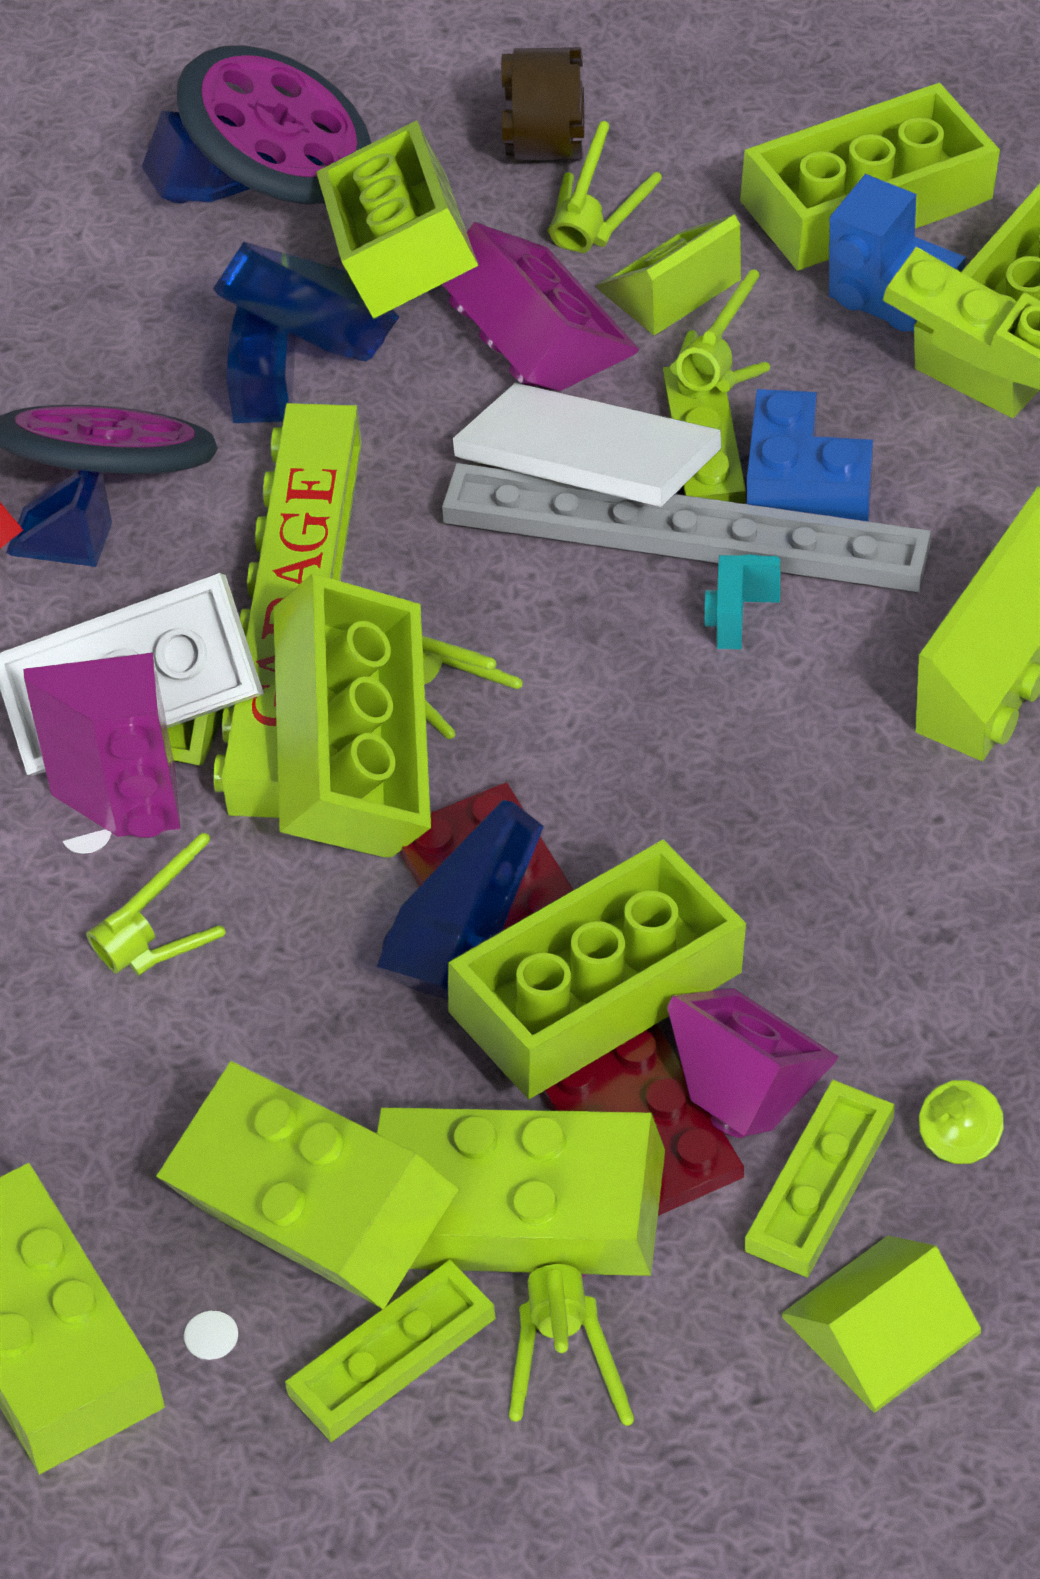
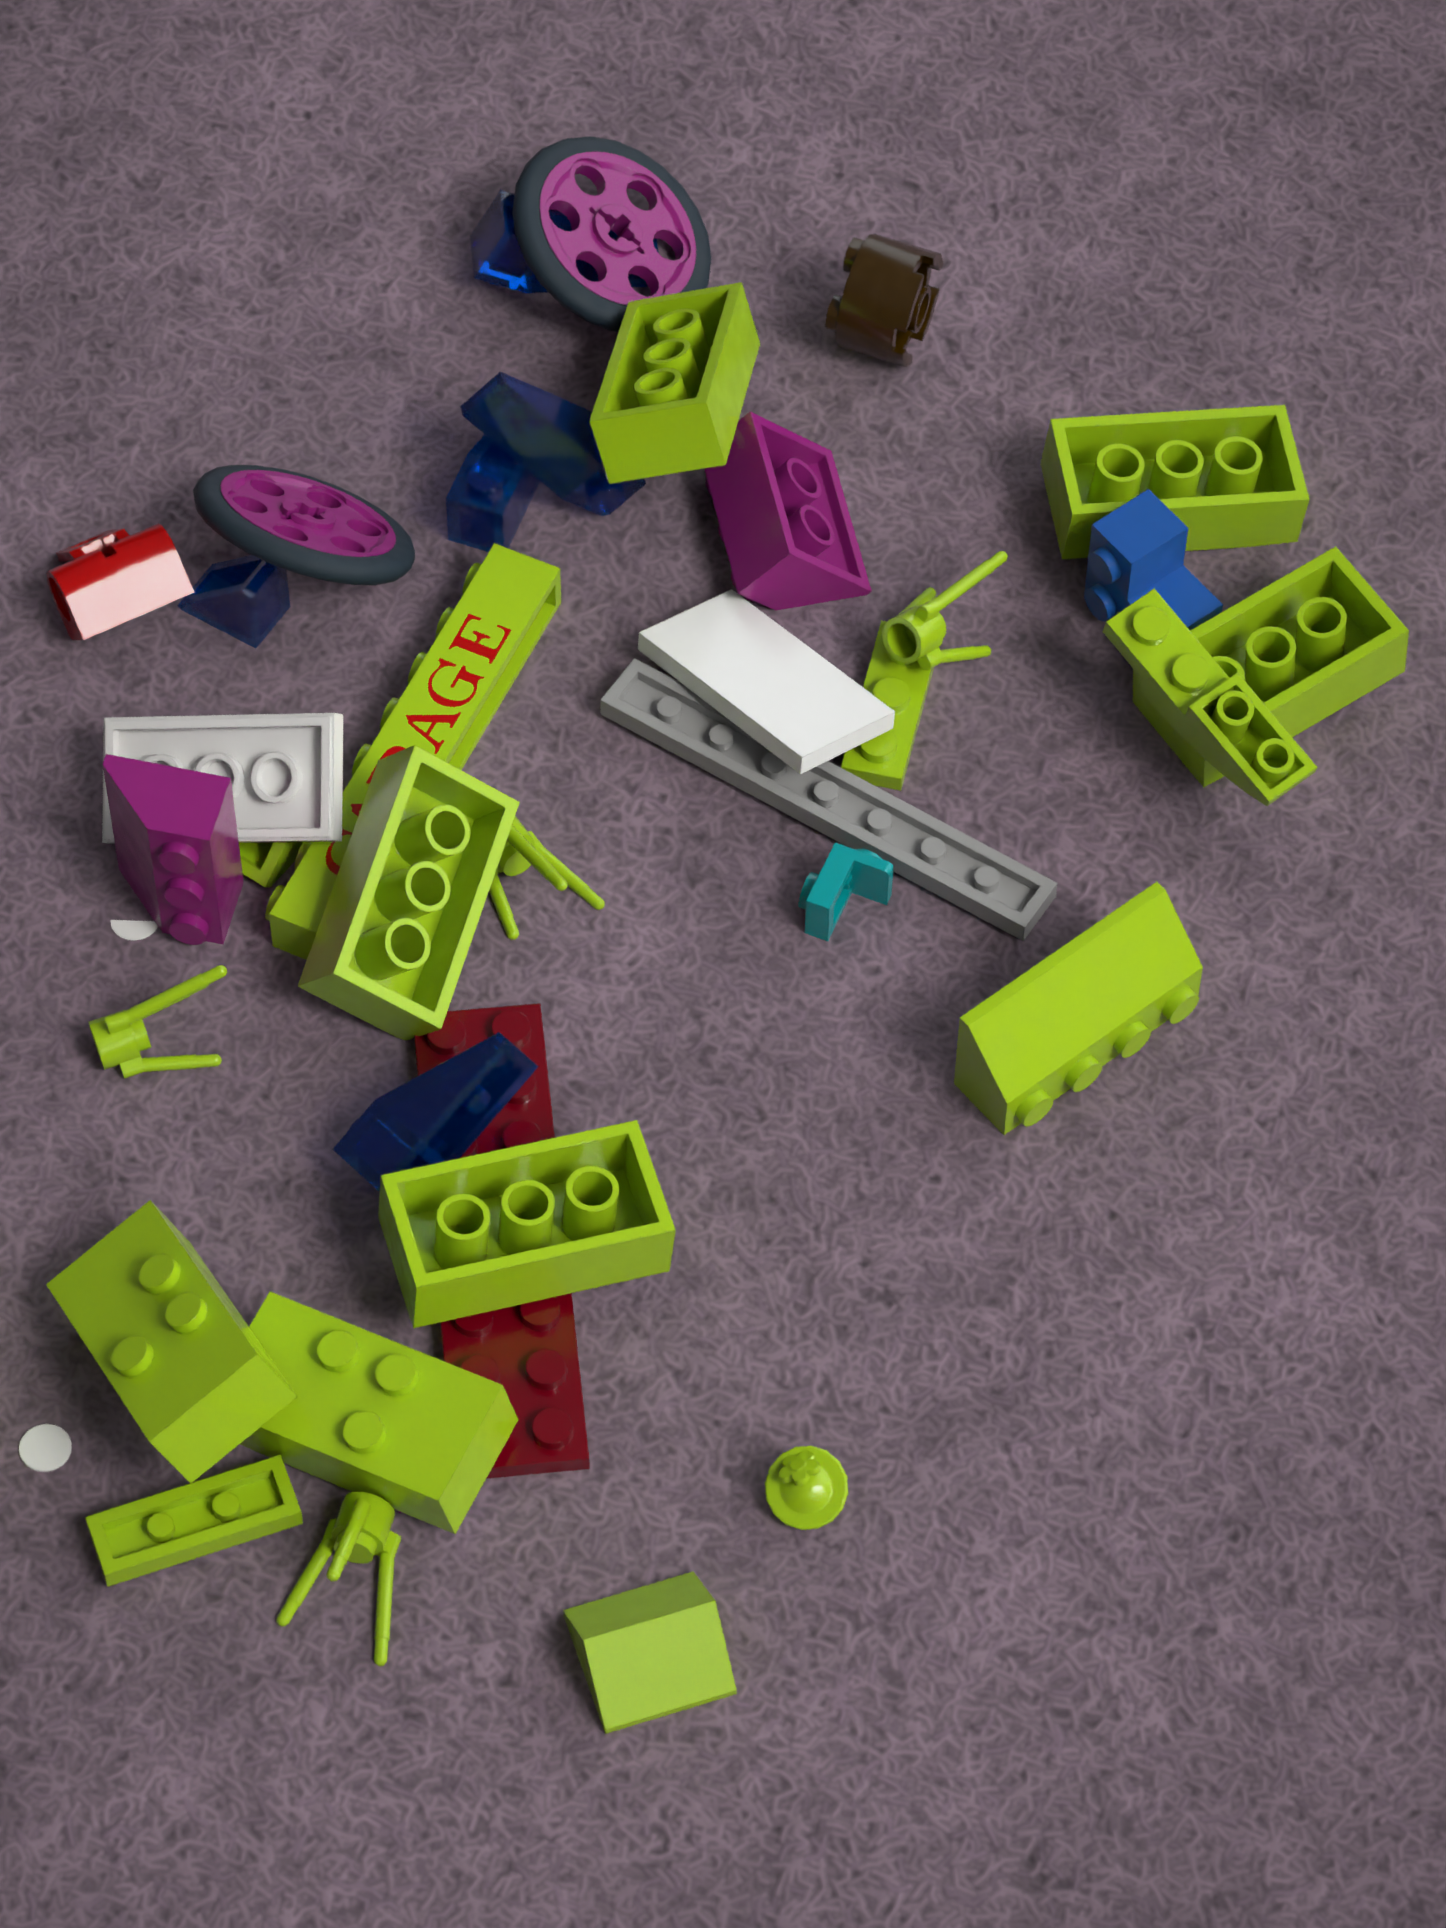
camera: 15 degrees right, 5 degrees up
(580, 217) = (873, 429): lime plant -> none
(678, 274) = (939, 525): lime slope -> none
(743, 1060) = (634, 1354): magenta slope -> none
(802, 471) = (959, 778): blue brick -> none
(819, 1178) = (653, 1495): lime plate -> none

